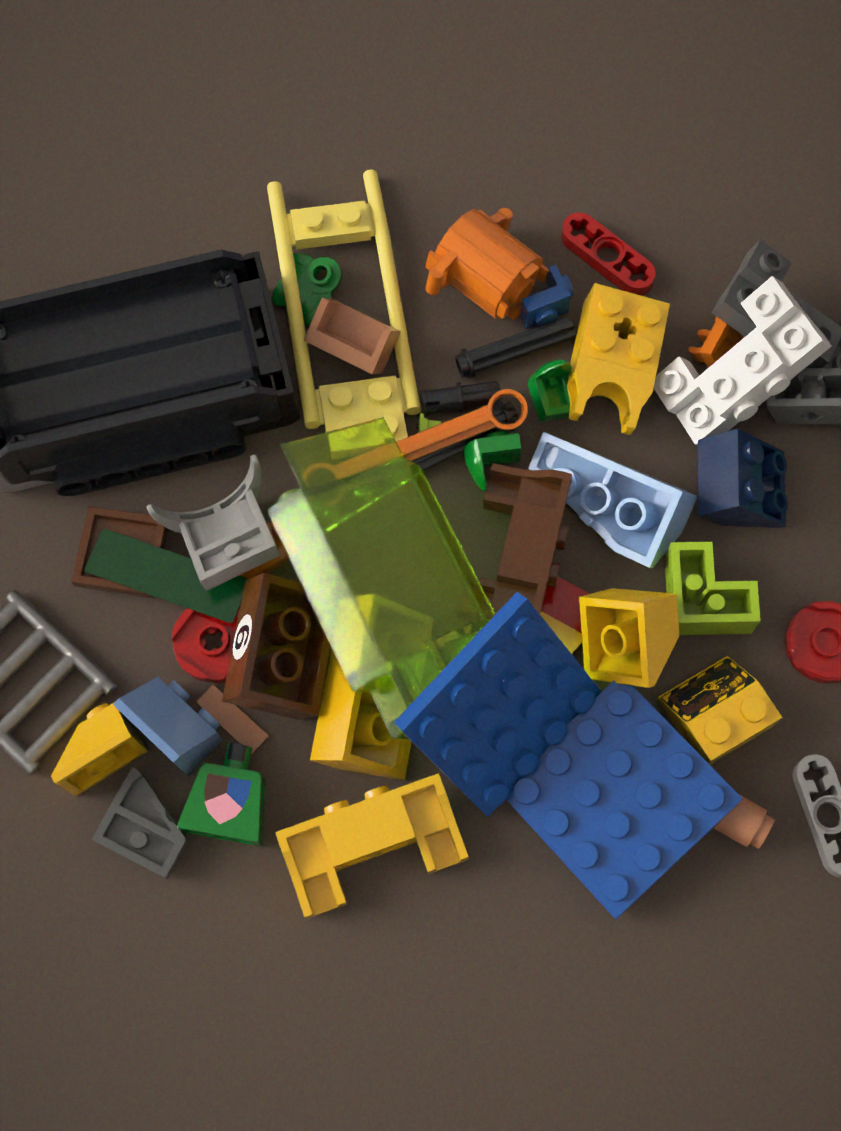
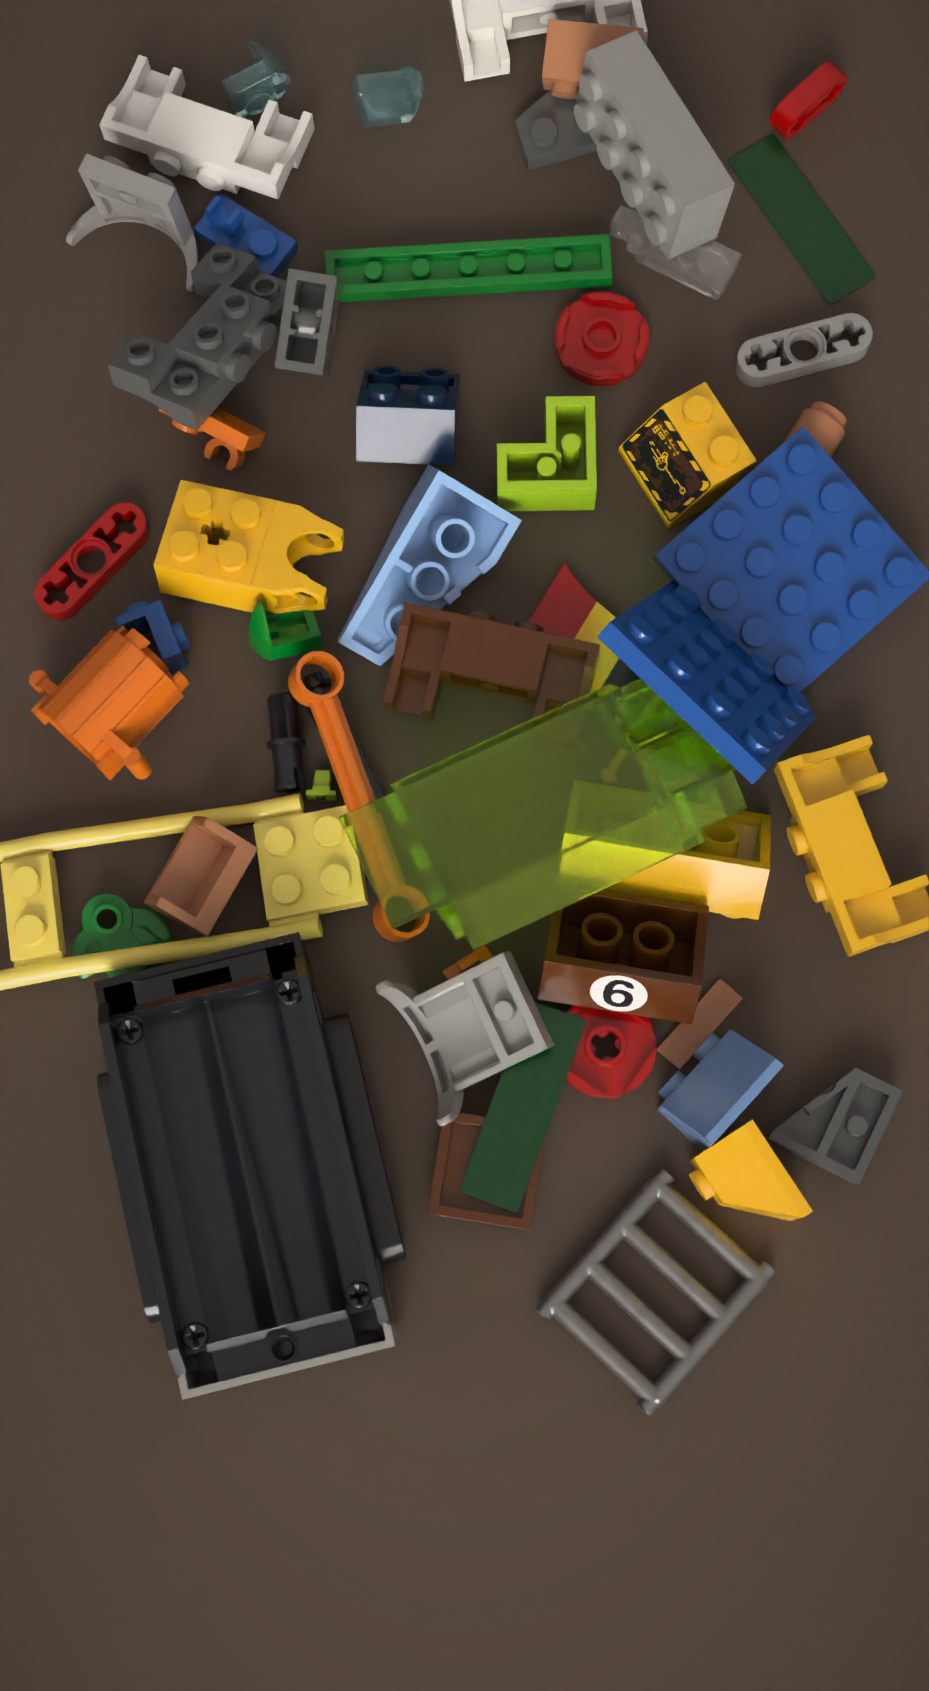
camera: 90 degrees left, 5 degrees up
(227, 800) = (806, 1020): green torso -> none
(496, 448) = (357, 699): green plate -> none
(514, 347) = (218, 678): black axle -> none
(628, 634) = (608, 543): yellow slope -> none
(749, 371) = (280, 377): white bracket -> none

